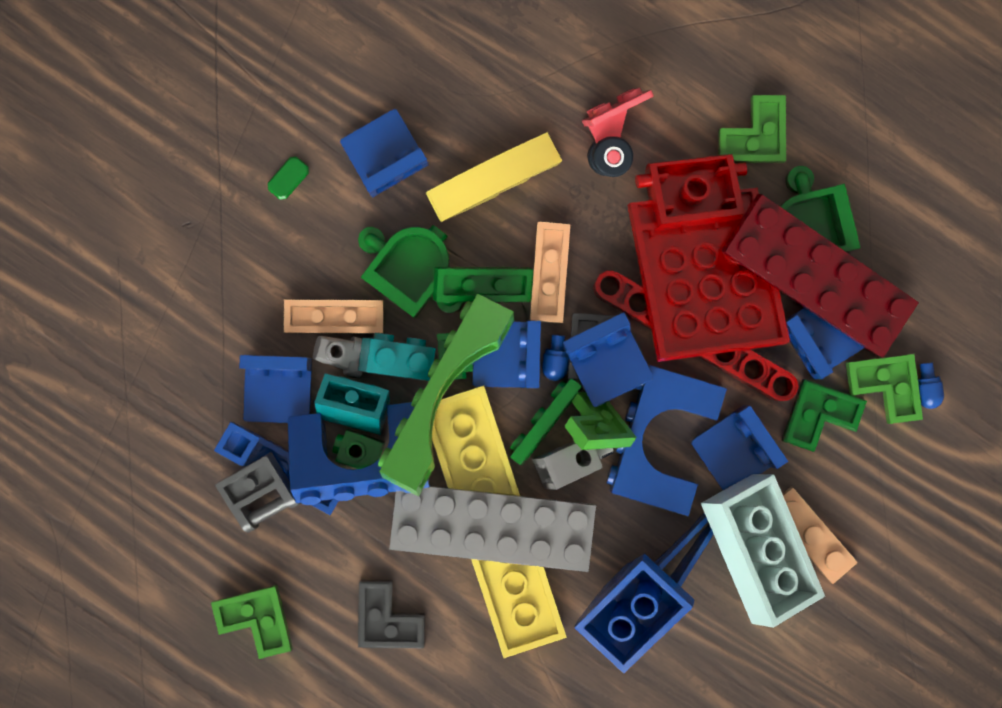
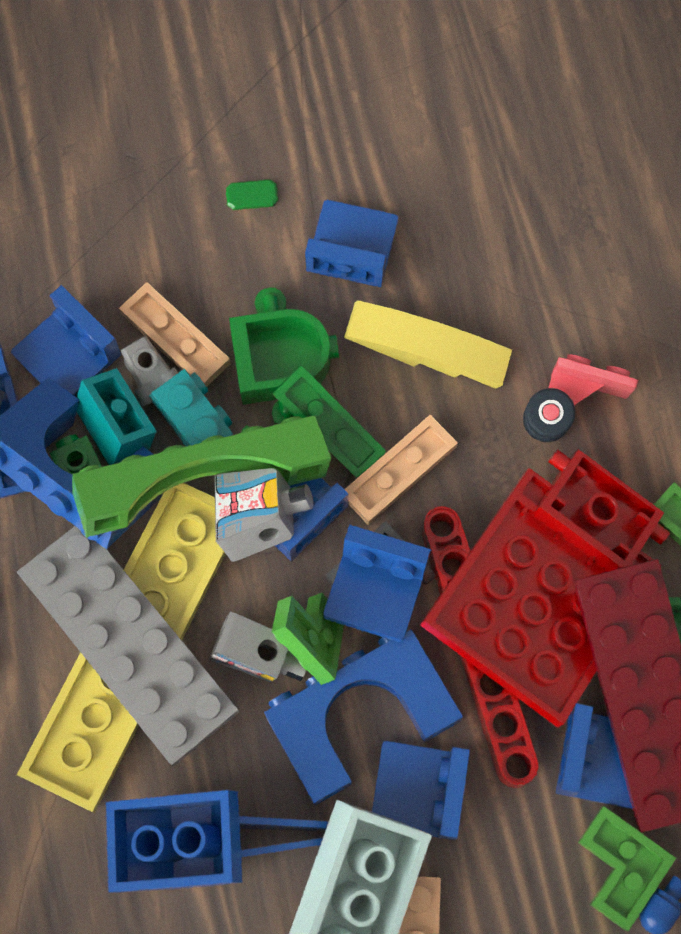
camera: 45 degrees right, 15 degrees down
(497, 383) = (256, 510): none -> torso
(544, 421) = (264, 594): green plate -> none
(555, 359) = (327, 552): blue cylinder -> none
(818, 405) = (535, 822): green tile -> none

